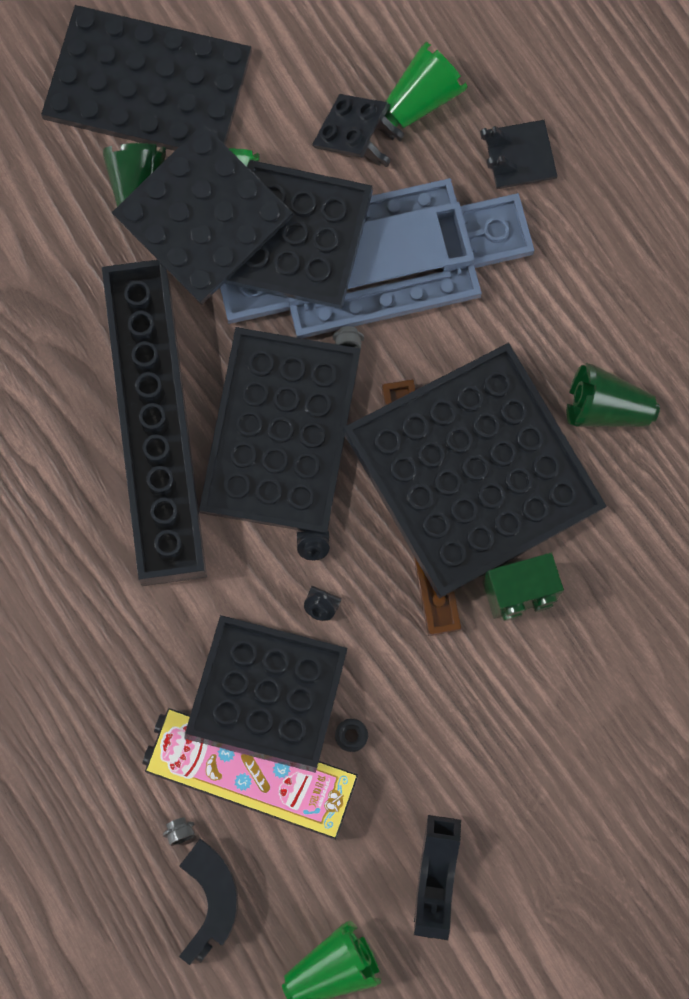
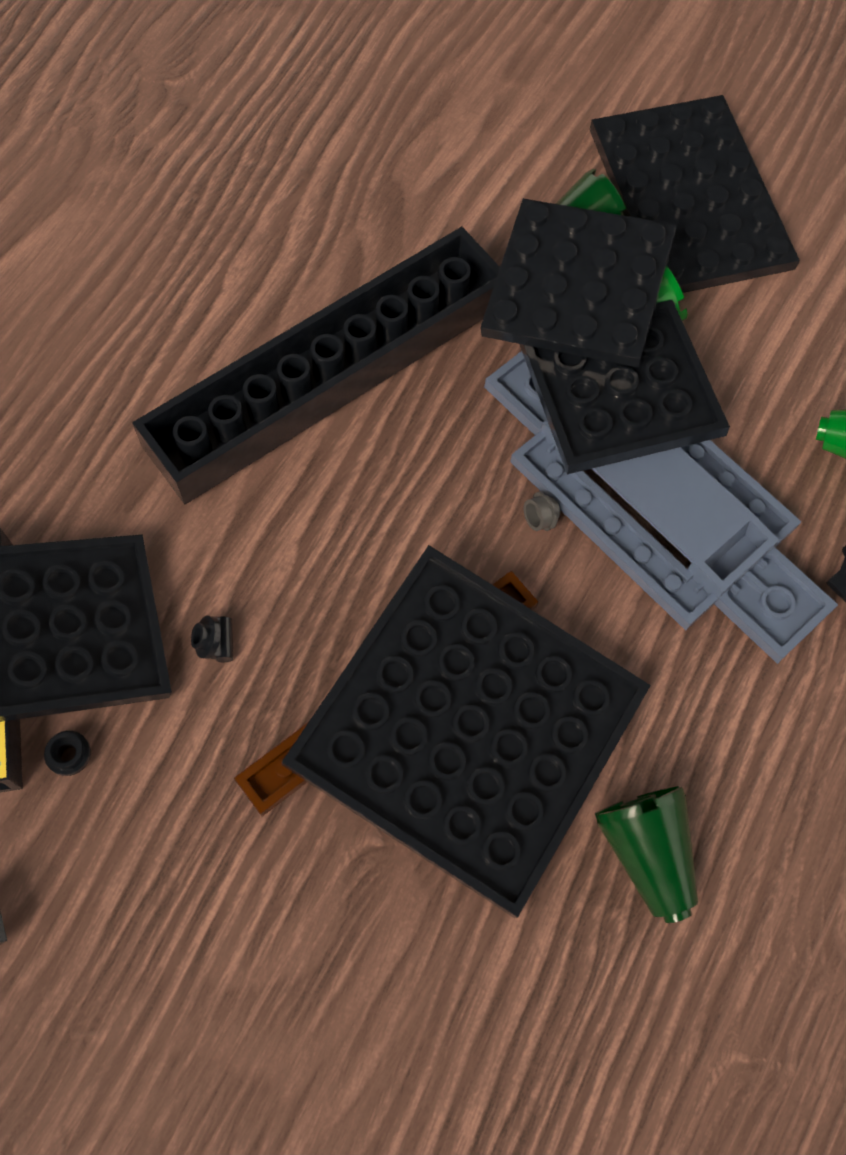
camera: 60 degrees right, 10 degrees down
(280, 431) = (382, 491): black plate -> none
(312, 545) = (280, 594): black plate -> none
(352, 125) = (789, 389): black plate -> none
(523, 586) = (348, 857): dark green brick -> none

